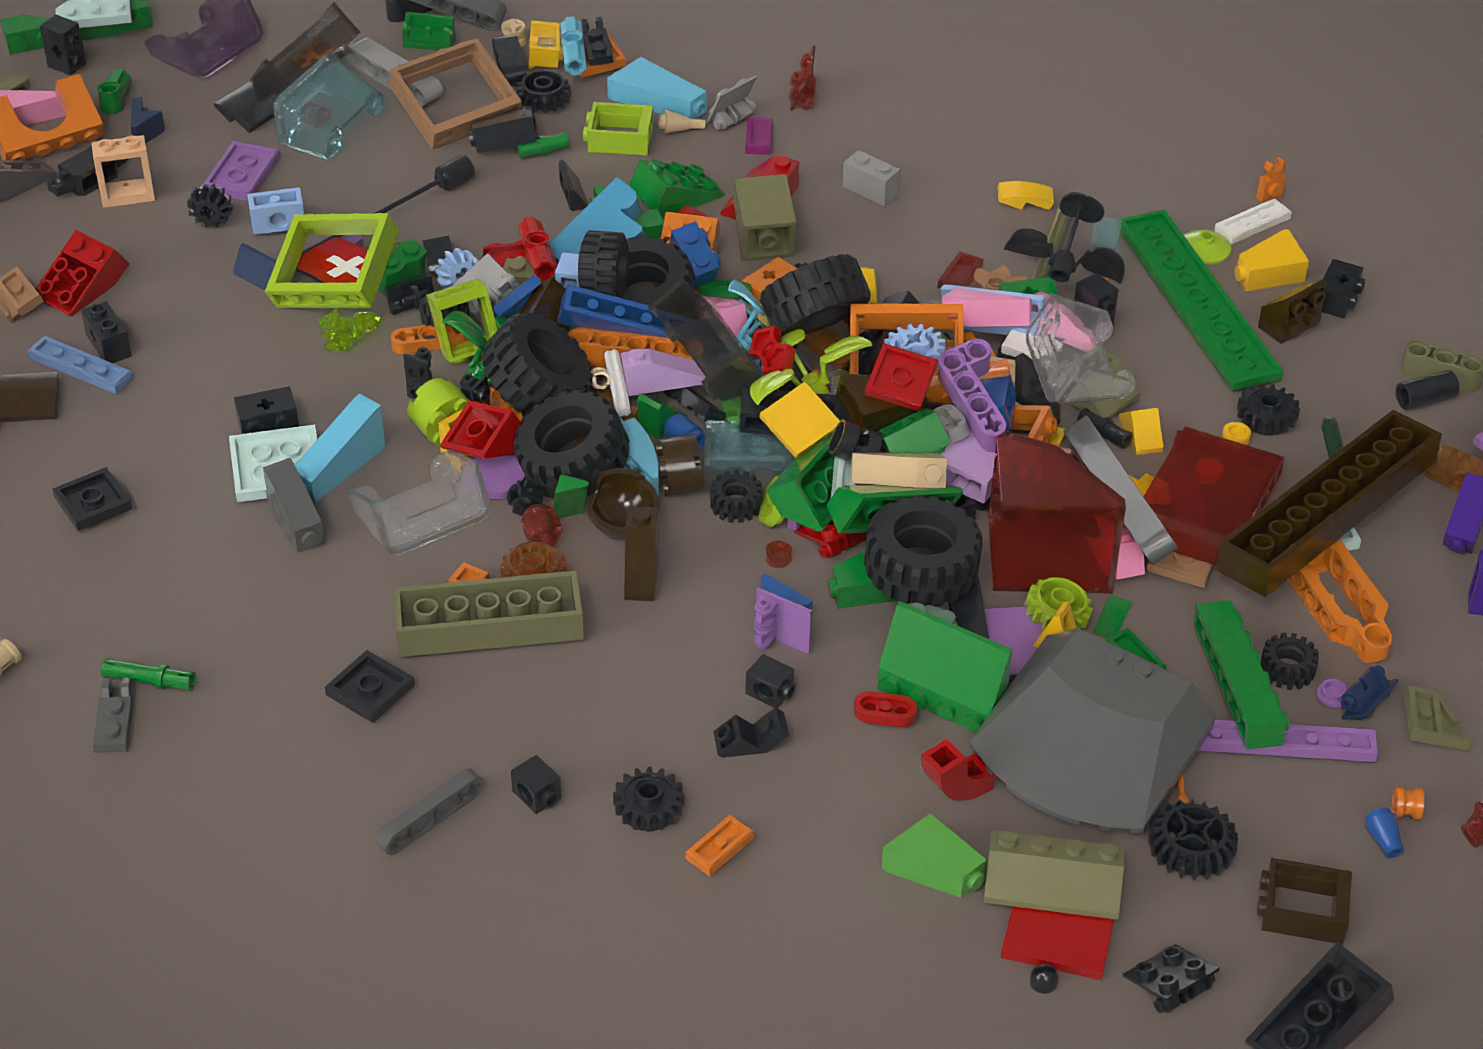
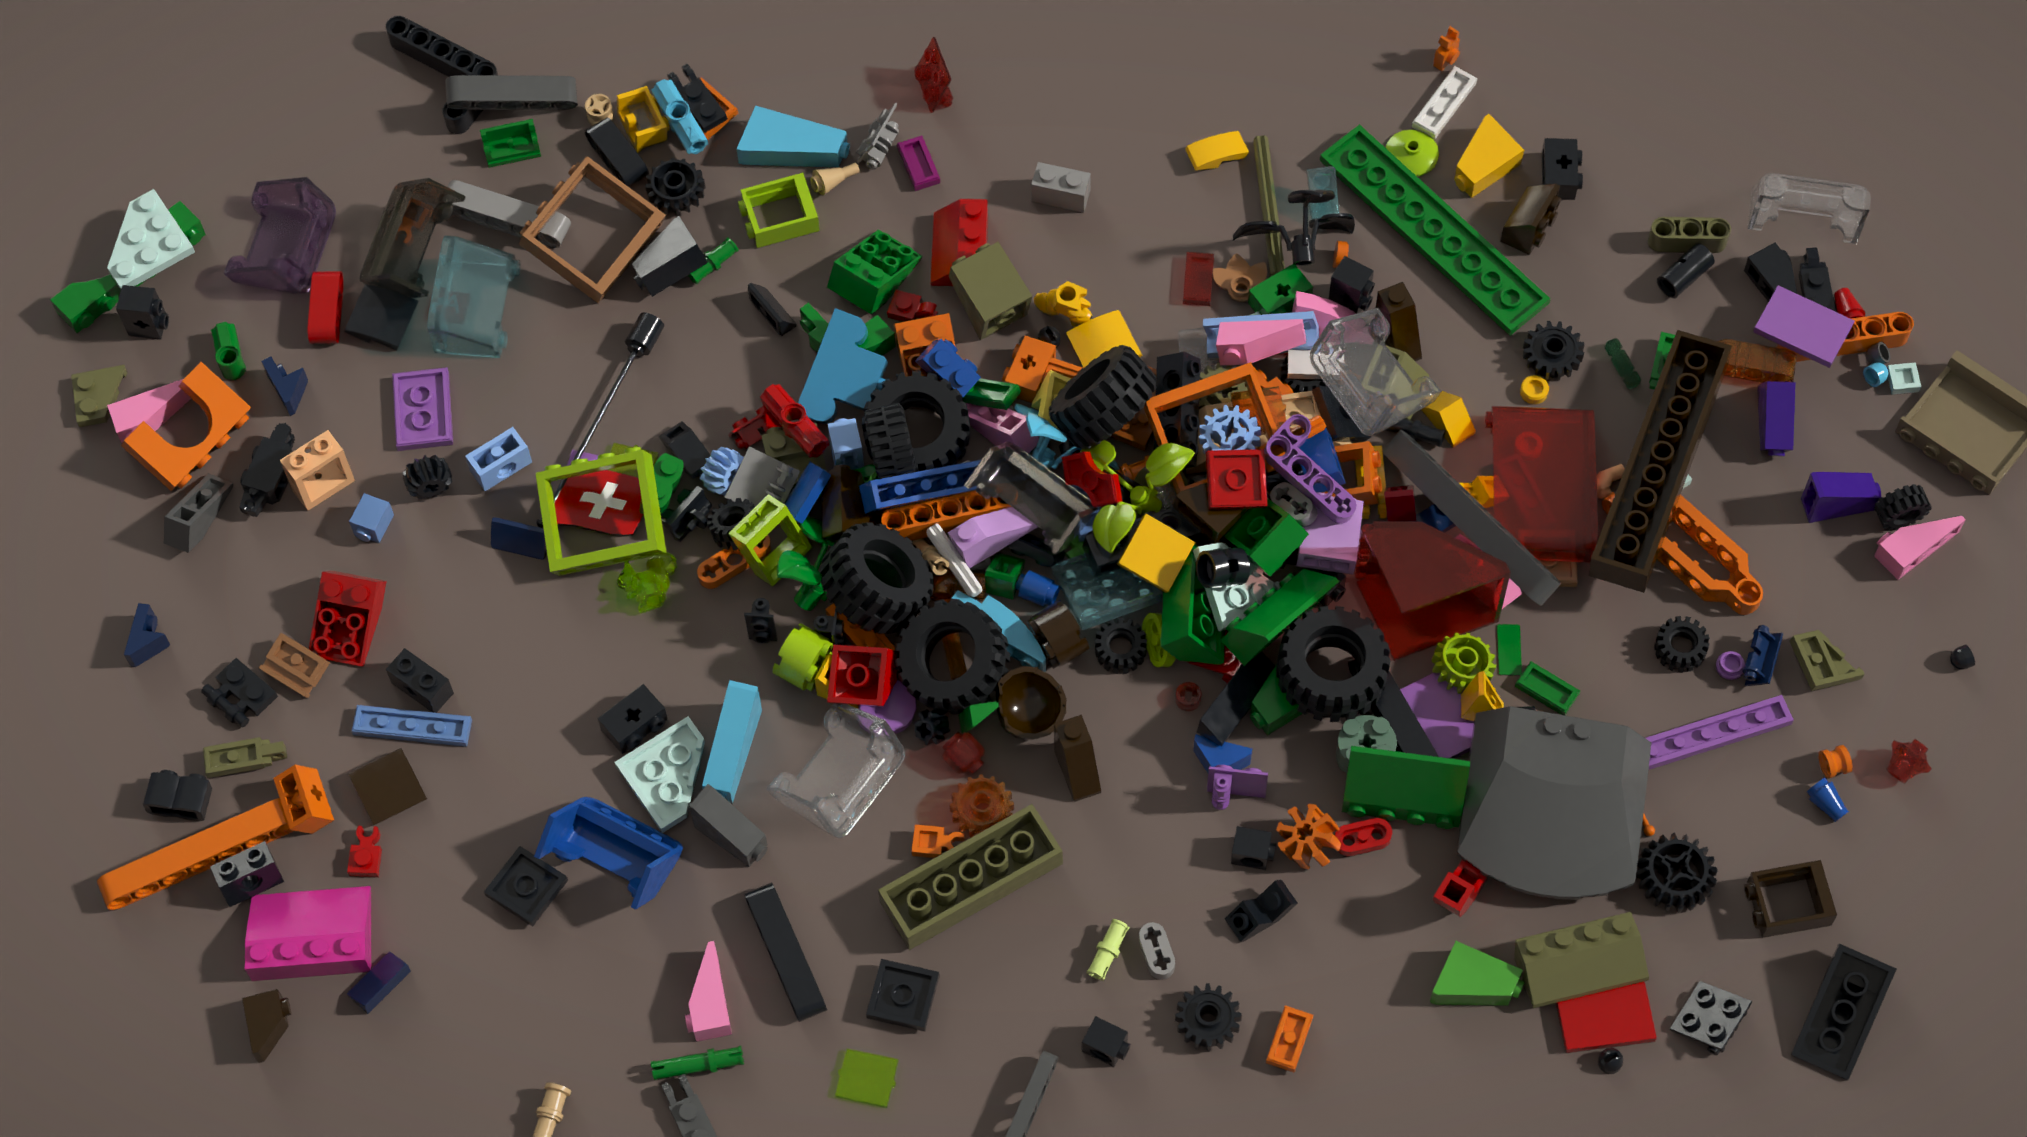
camera: 20 degrees left, 20 degrees up
(147, 221) = (371, 518): none -> medium blue brick
(182, 484) = (613, 842): none -> blue windscreen
(191, 628) = (707, 1003): none -> bright pink slope
(209, 86) = (325, 307): none -> red beam
(283, 619) = (785, 952): none -> black beam
(295, 742) = (866, 1078): none -> clear neon green piece
(584, 715) = (1108, 949): none -> yellowish green pin
(627, 733) = (1163, 949): none -> light grey beam
(813, 560) = (1235, 700): none -> black slope
(825, 242) = (1067, 301): none -> yellow animal
(829, 686) = (1308, 836): none -> orange gear
(899, 469) = (1276, 581): tan slope -> none
(1127, 334) = (1401, 314): none -> dark brown slope
(1240, 675) = (1649, 681): green brick -> none

